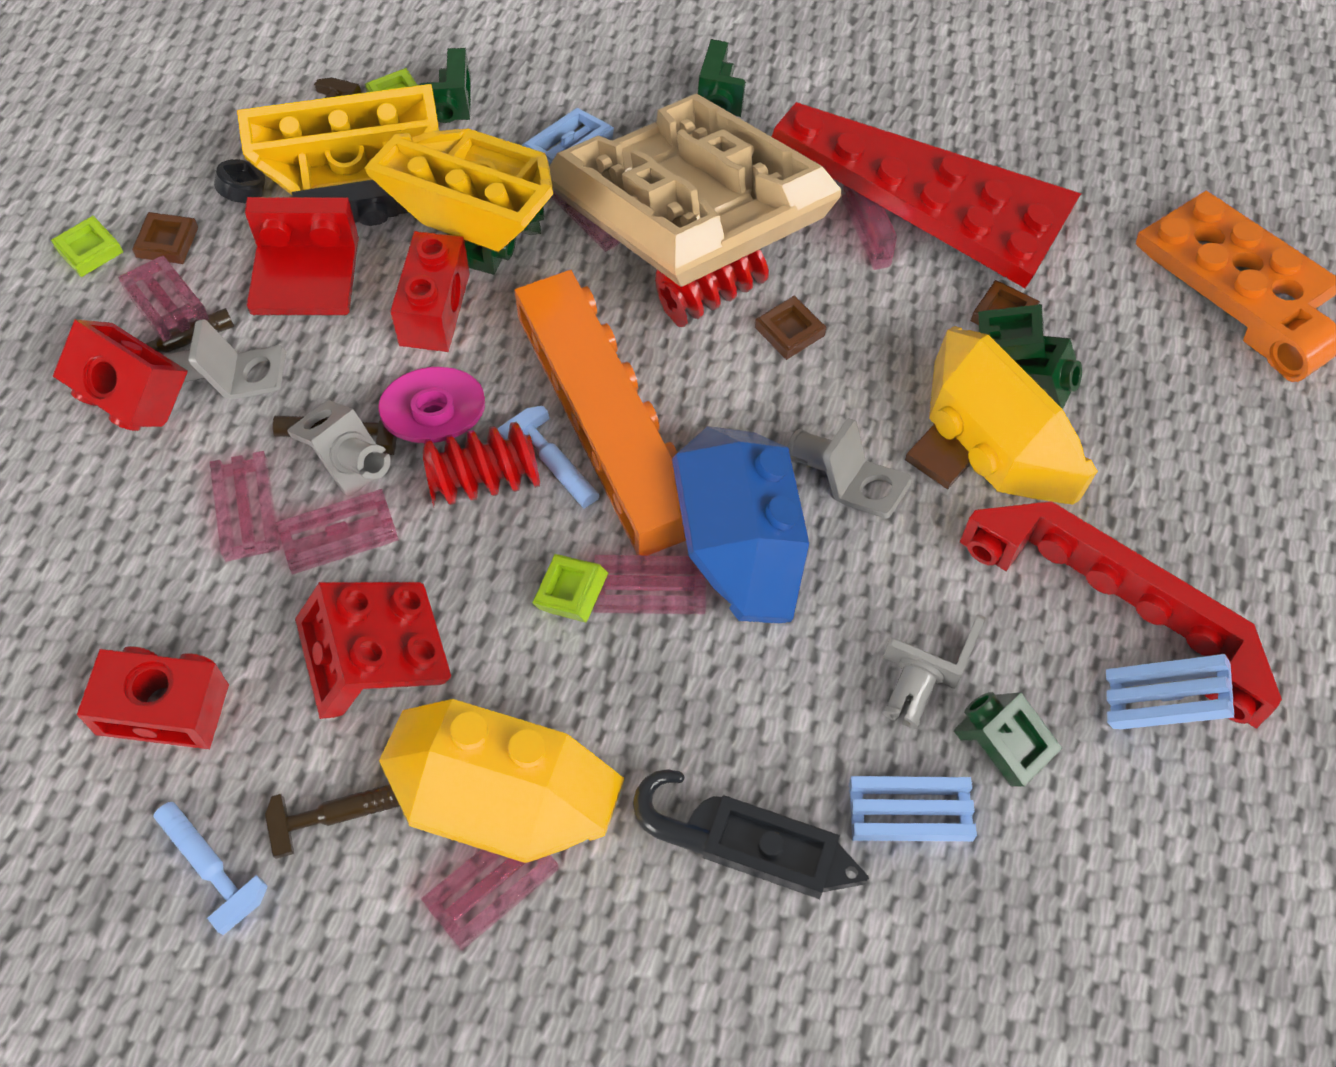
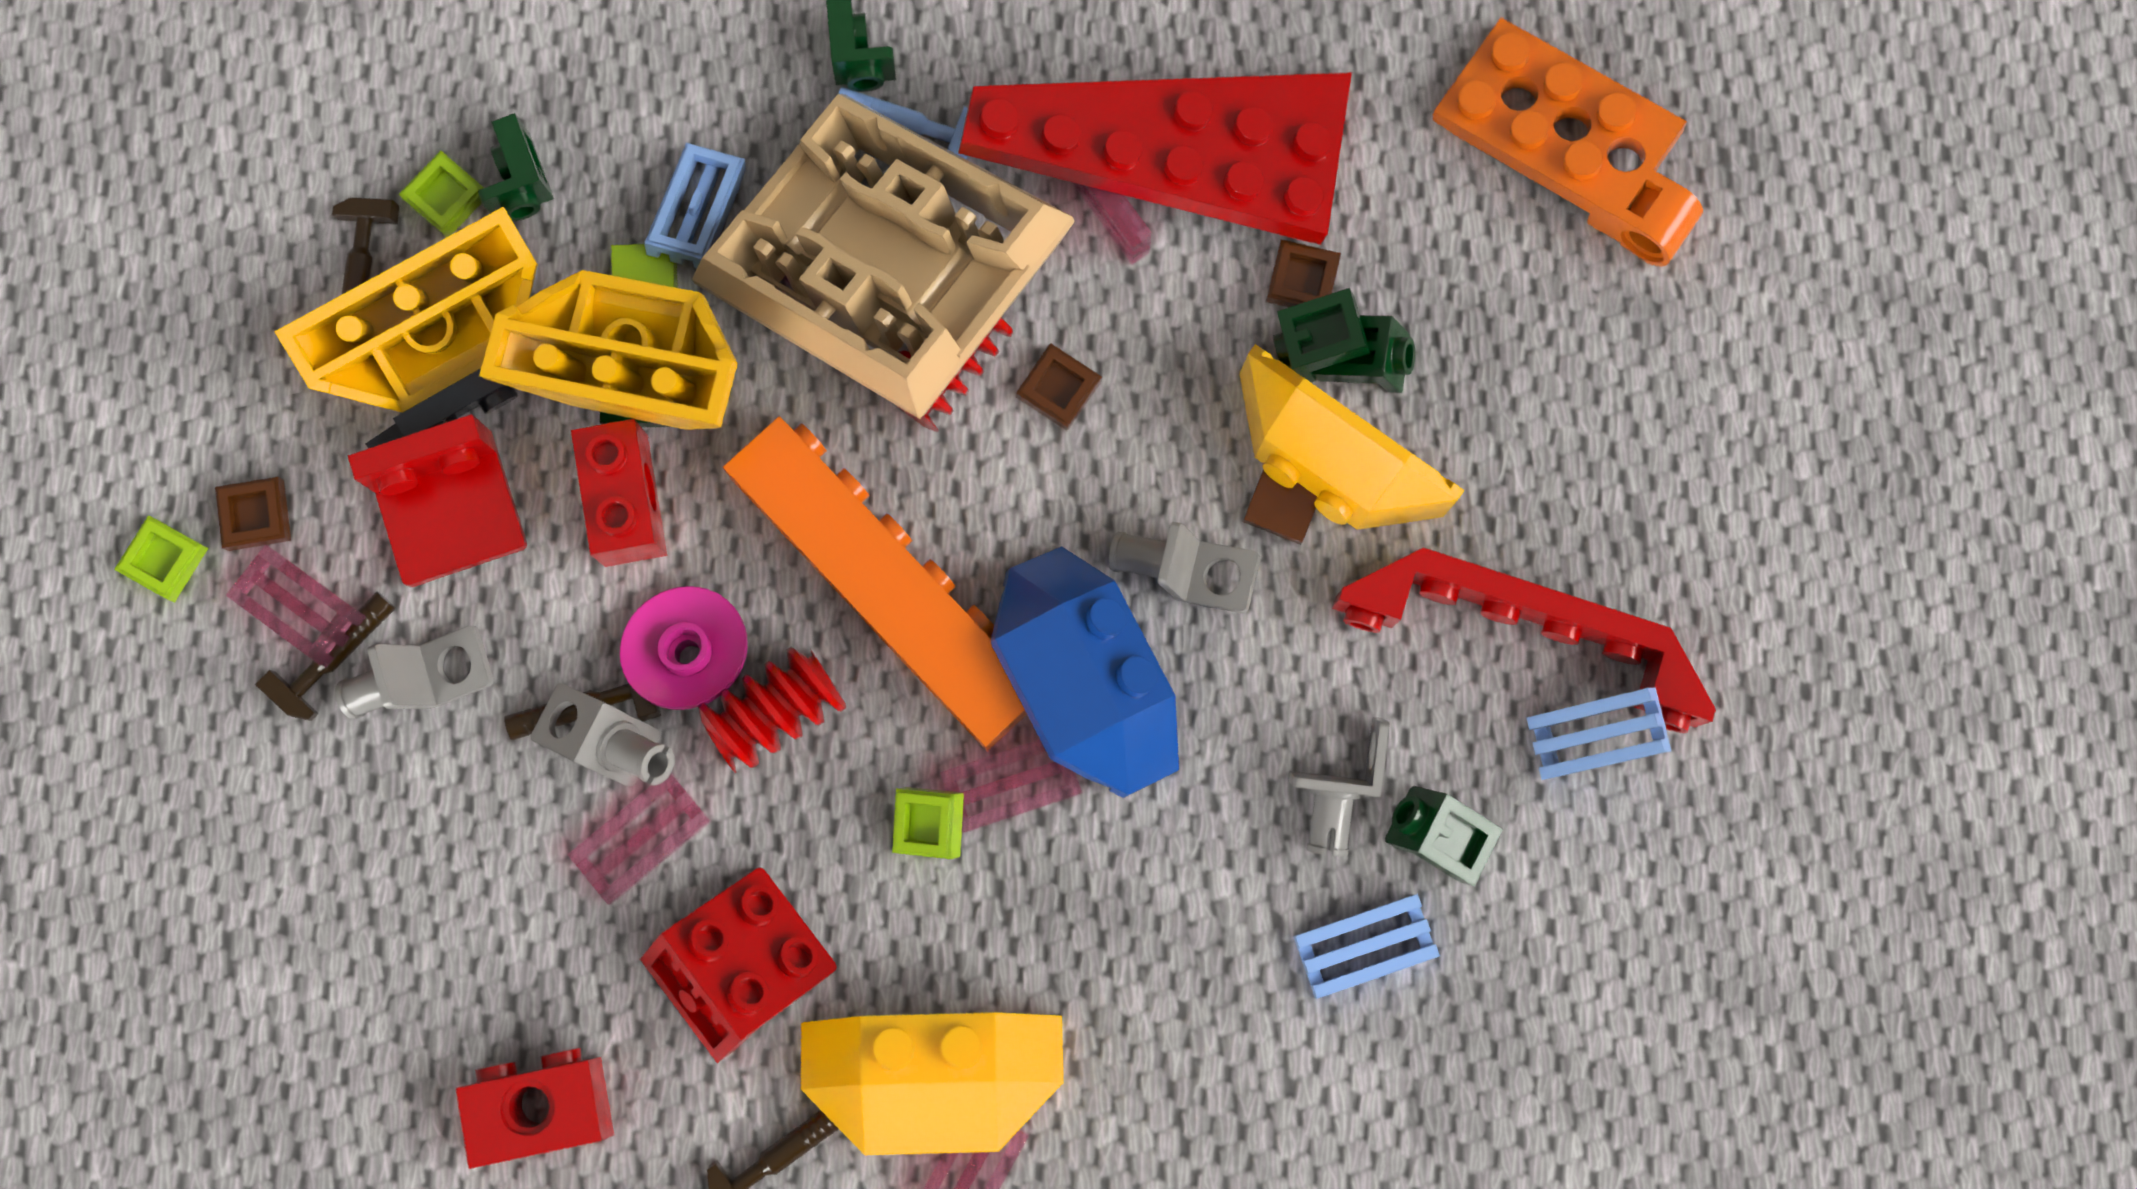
camera: 20 degrees left, 20 degrees up
(119, 375) = (302, 737): red brick -> none
(238, 180) = (305, 409): black tile -> none
(238, 469) = (492, 798): clear pink tile -> none
(552, 456) = (840, 656): light blue piece -> none
(752, 840) = (1212, 1042): black plate -> none

